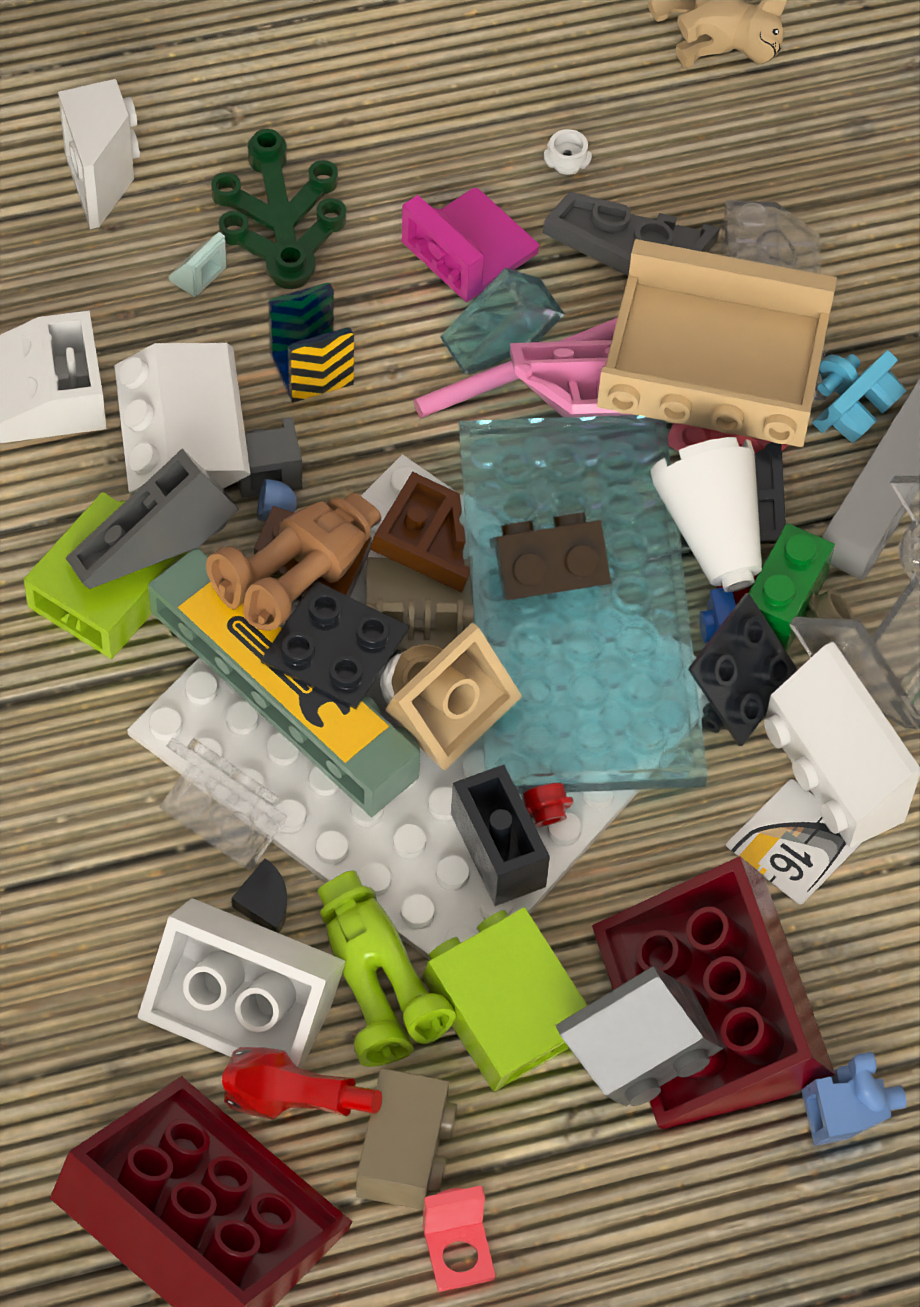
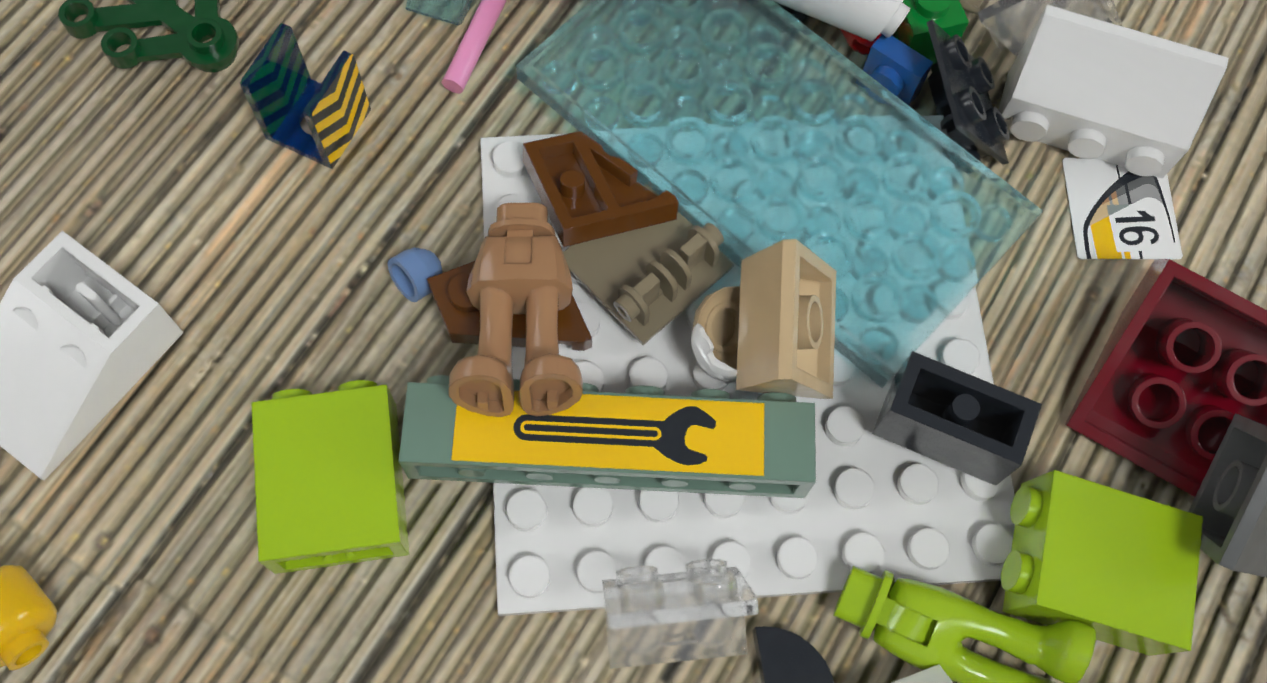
camera: 45 degrees left, 10 degrees up
(160, 520) = (348, 393): dark grey slope -> none
(178, 400) = (261, 269): white slope -> none
(201, 266) = (123, 106): light aqua slope -> none
(272, 456) = (368, 237): dark grey brick -> none
(335, 644) = (637, 367): black hinge -> none
(547, 804) = (948, 346): red plate -> none
(551, 558) = (731, 122): dark brown bracket -> none

